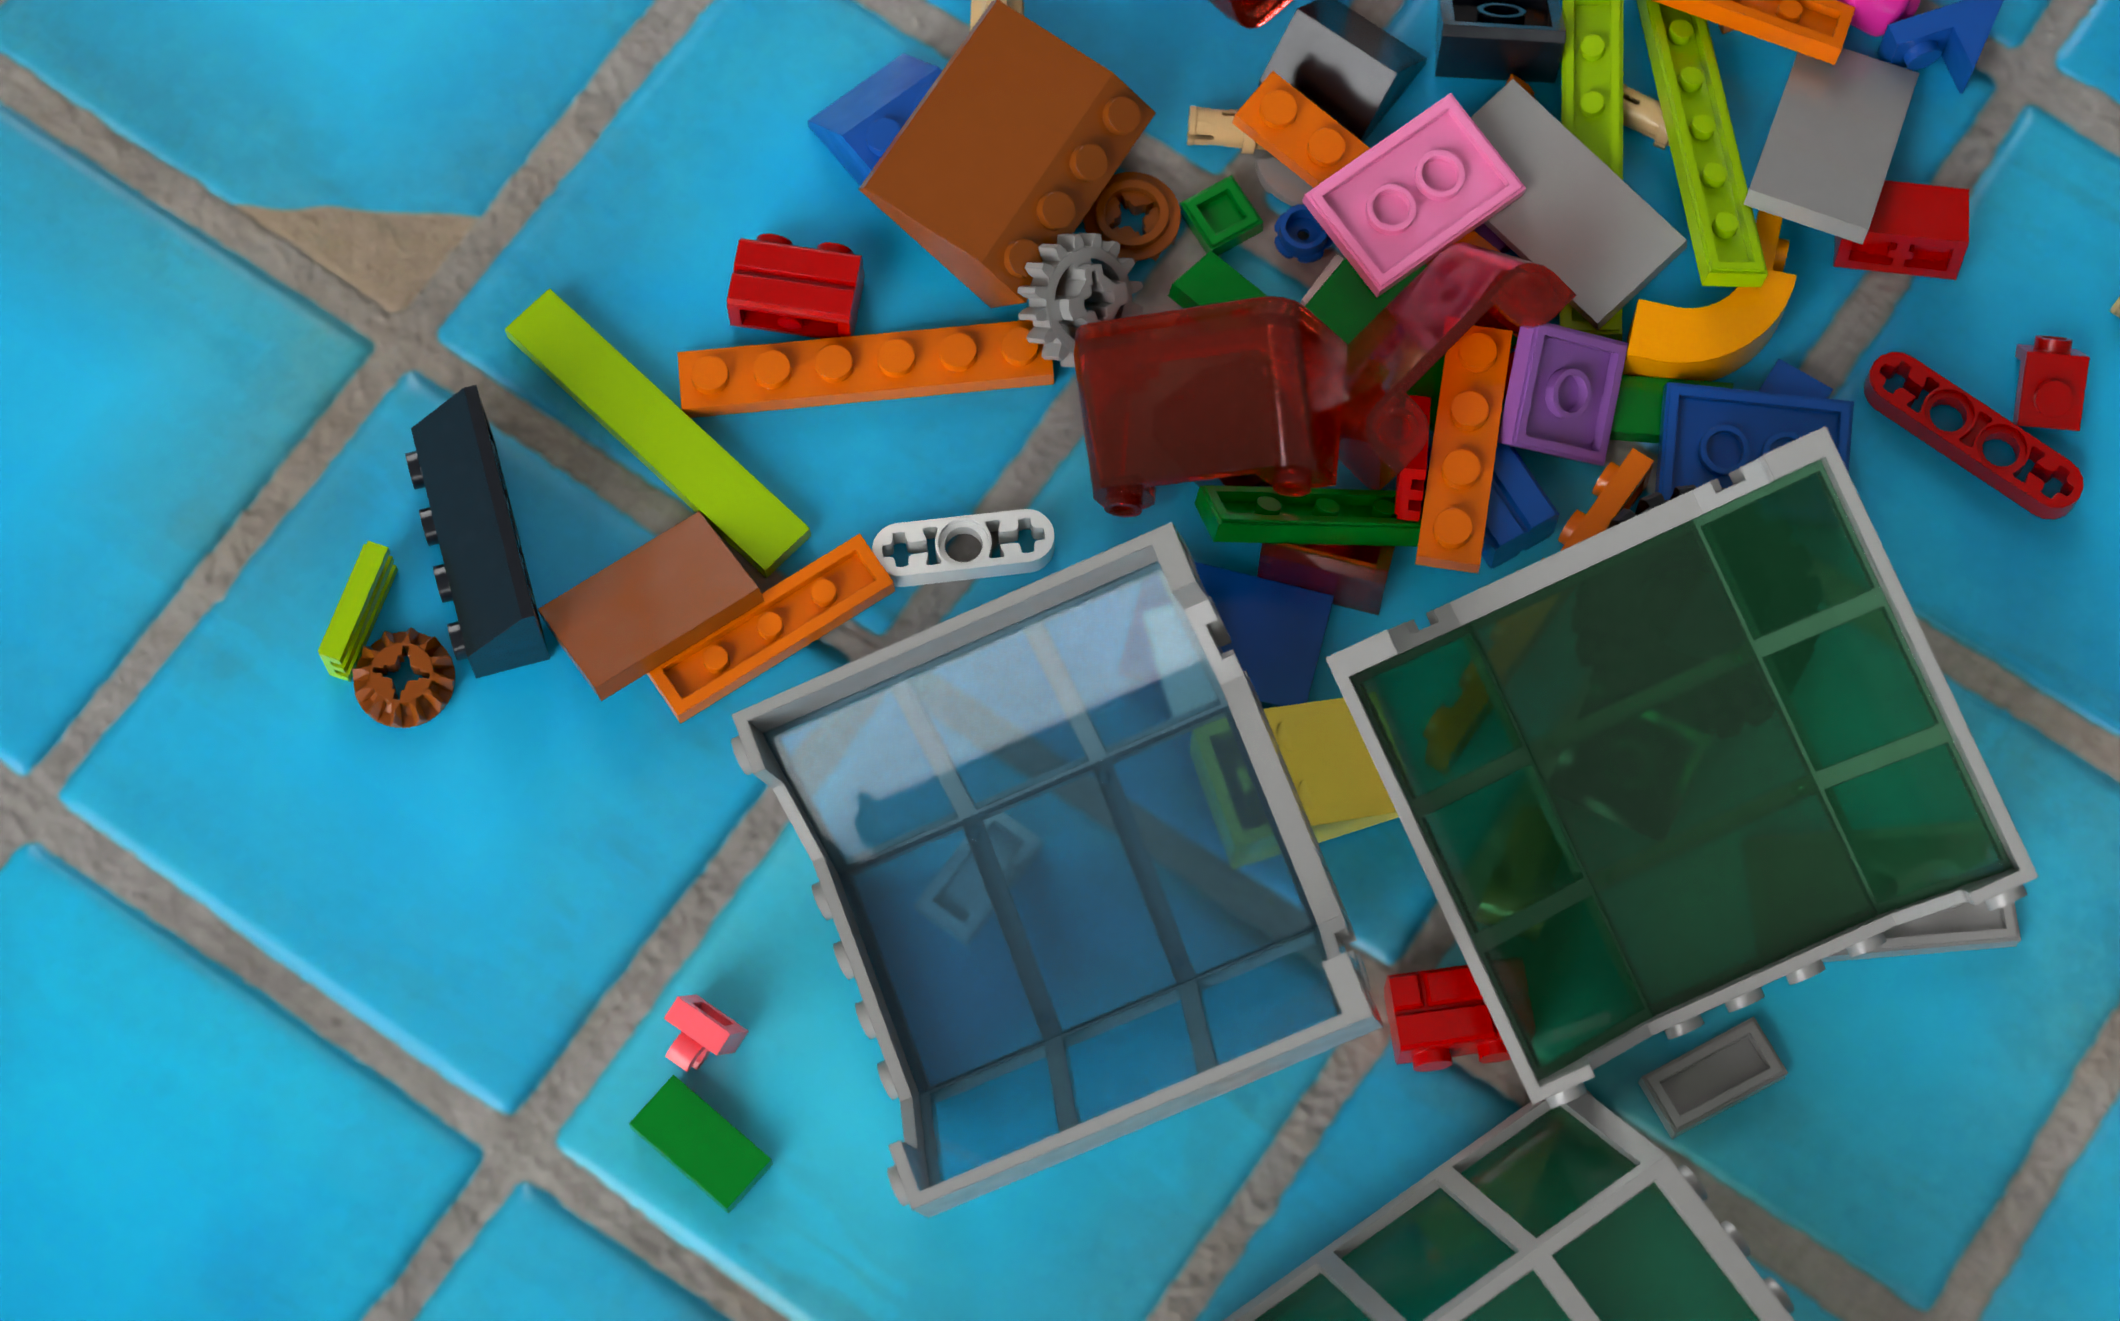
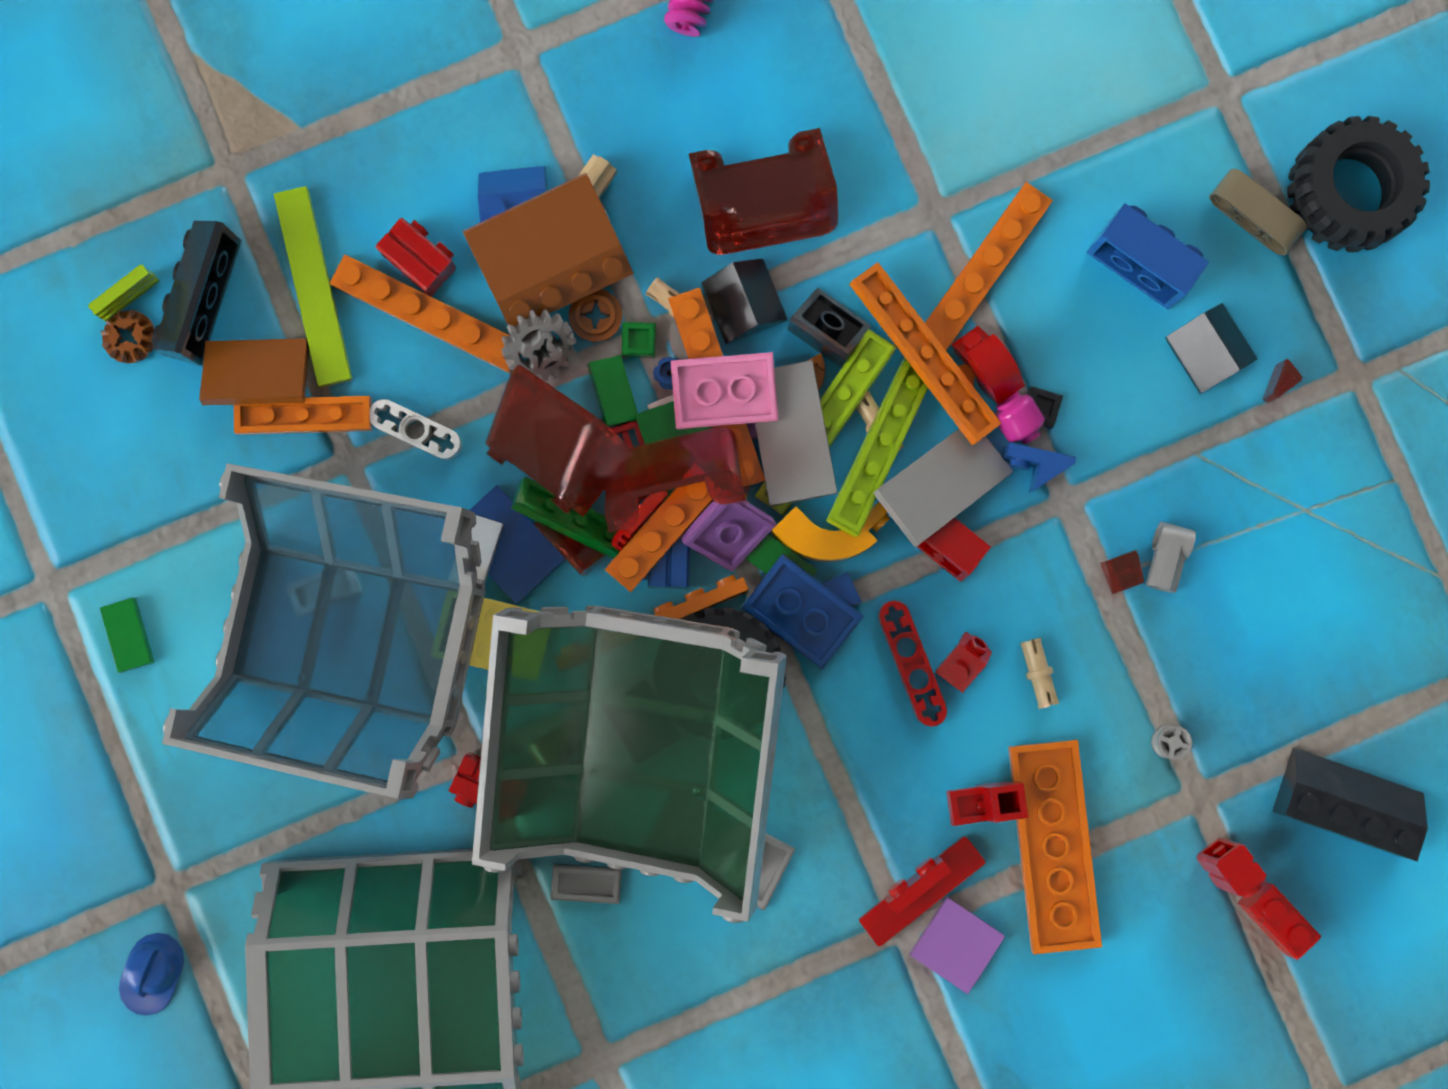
camera: 25 degrees right, 15 degrees up
(703, 1031) = (156, 585): coral tile -> none

